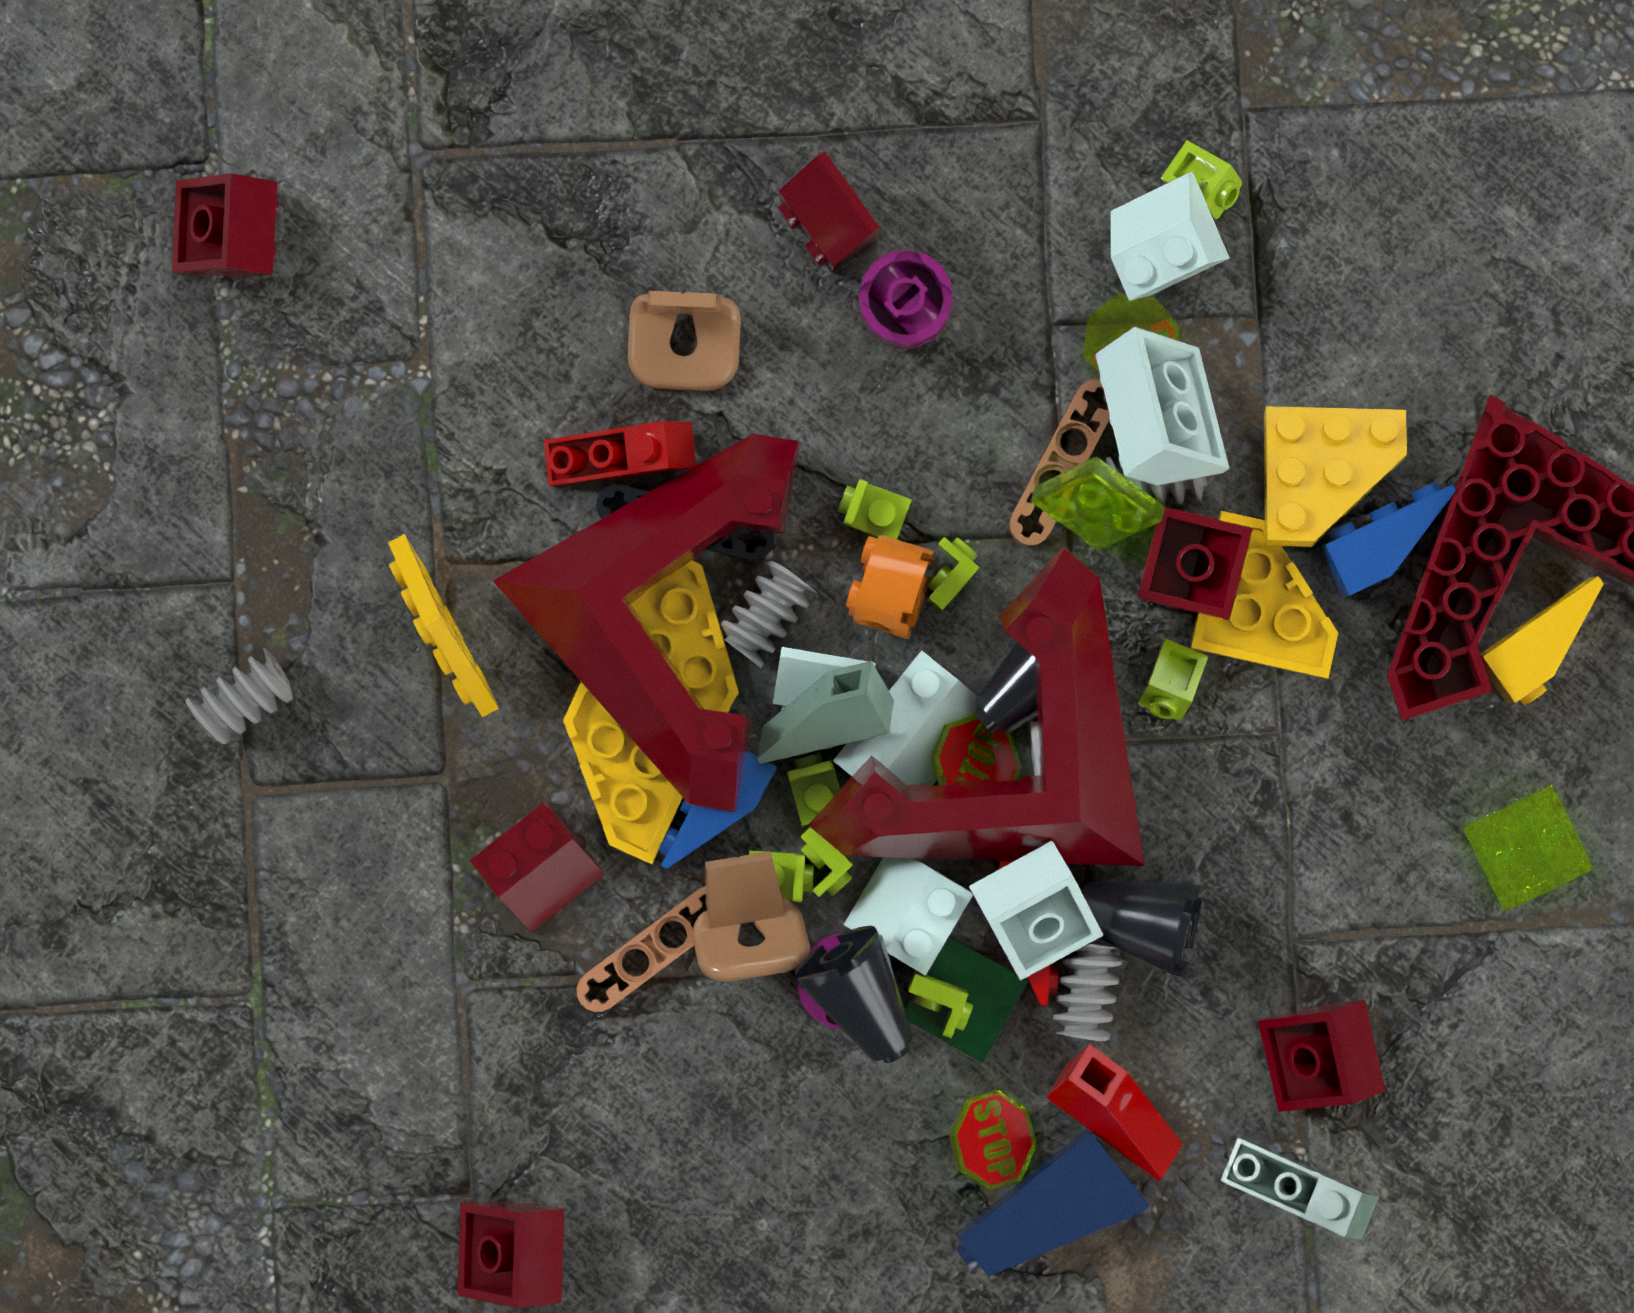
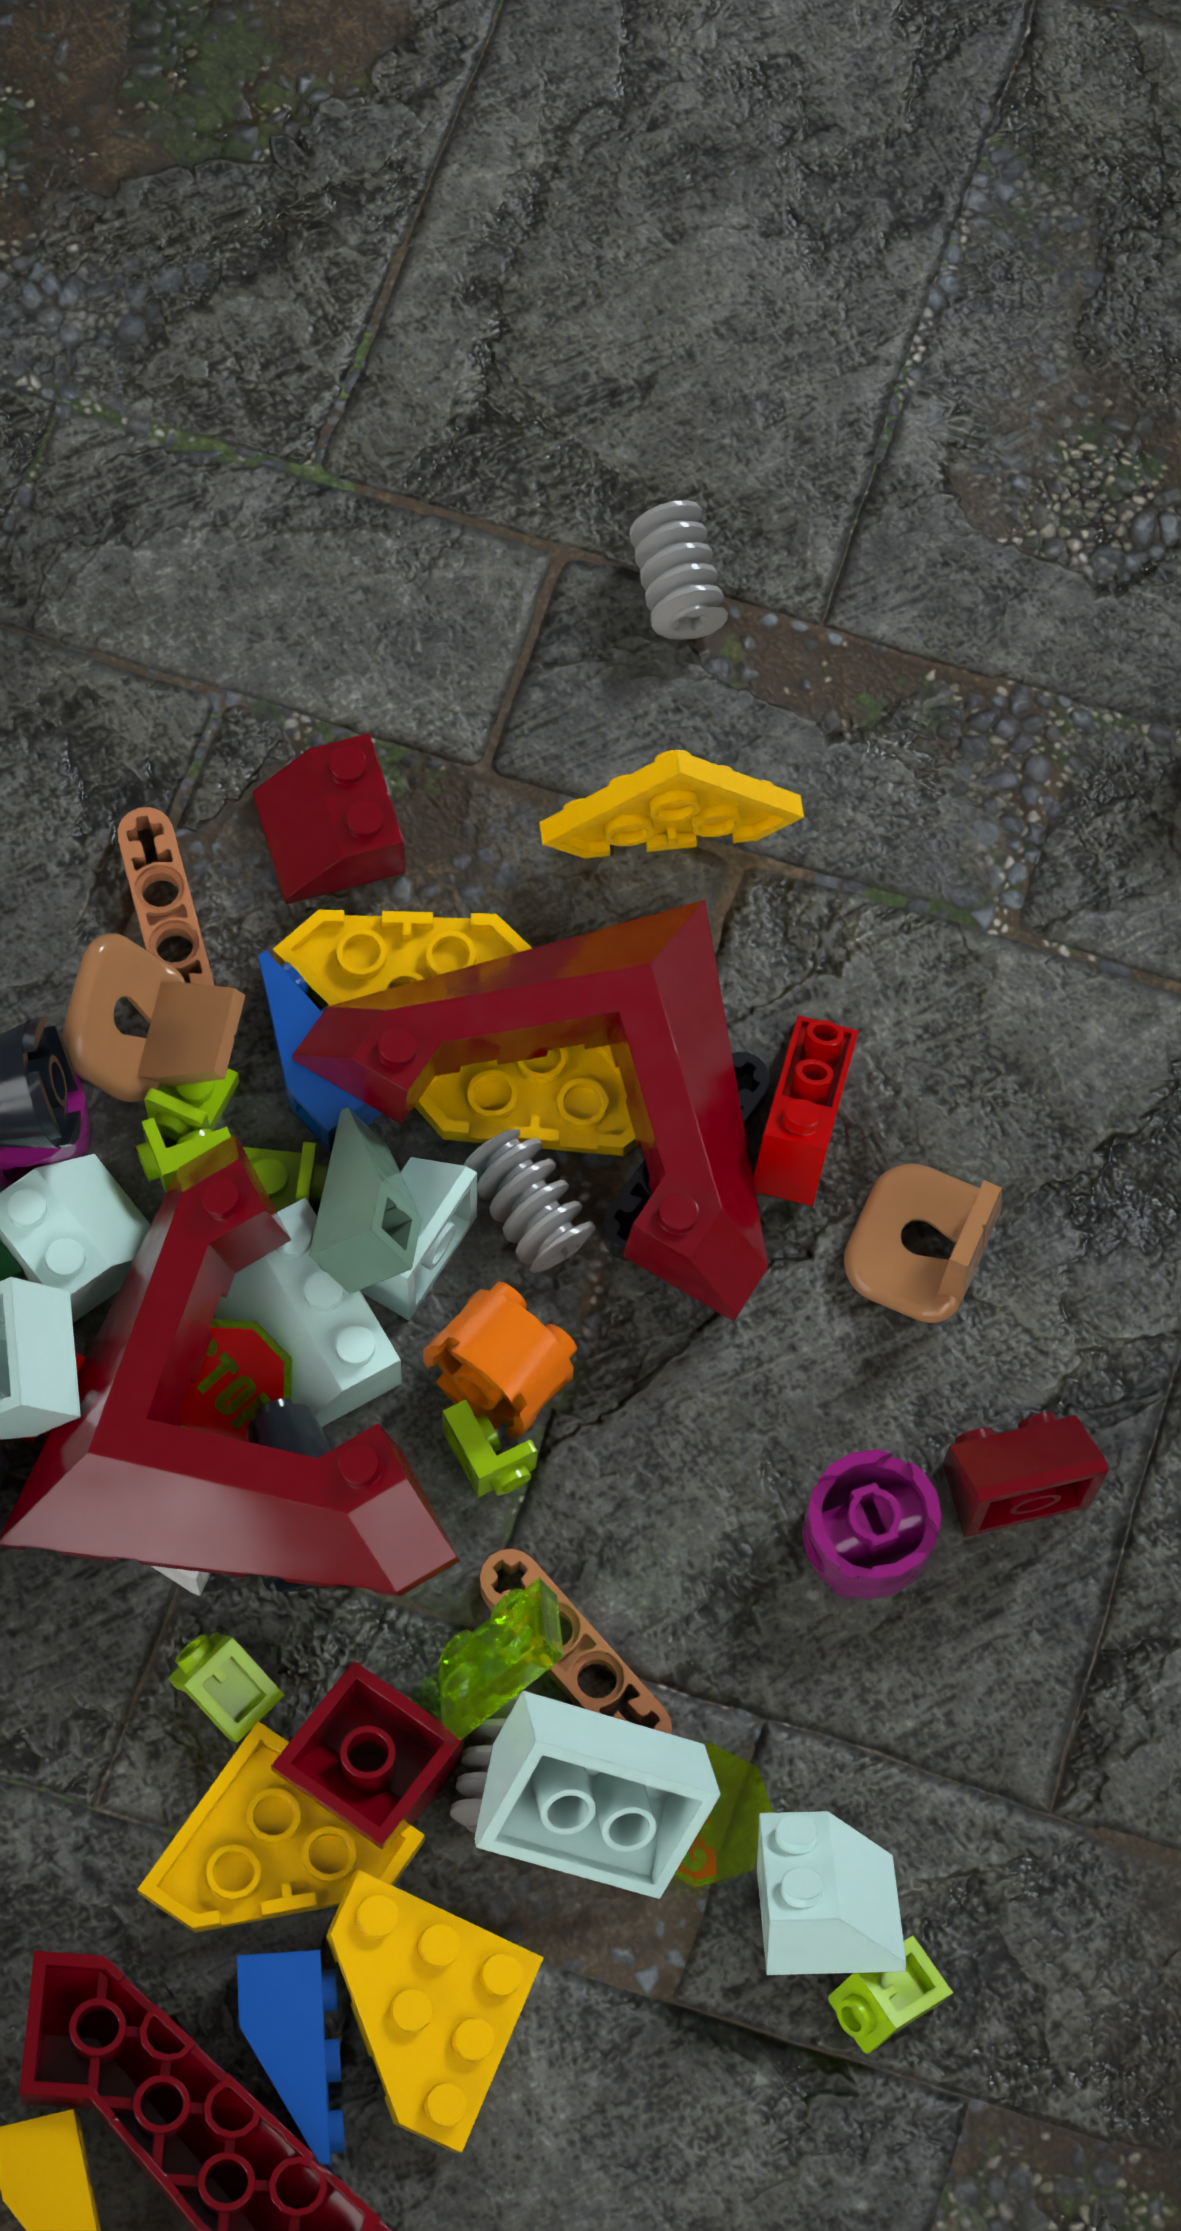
camera: 110 degrees right, 20 degrees down
(873, 510) = (609, 1389): lime bracket -> none

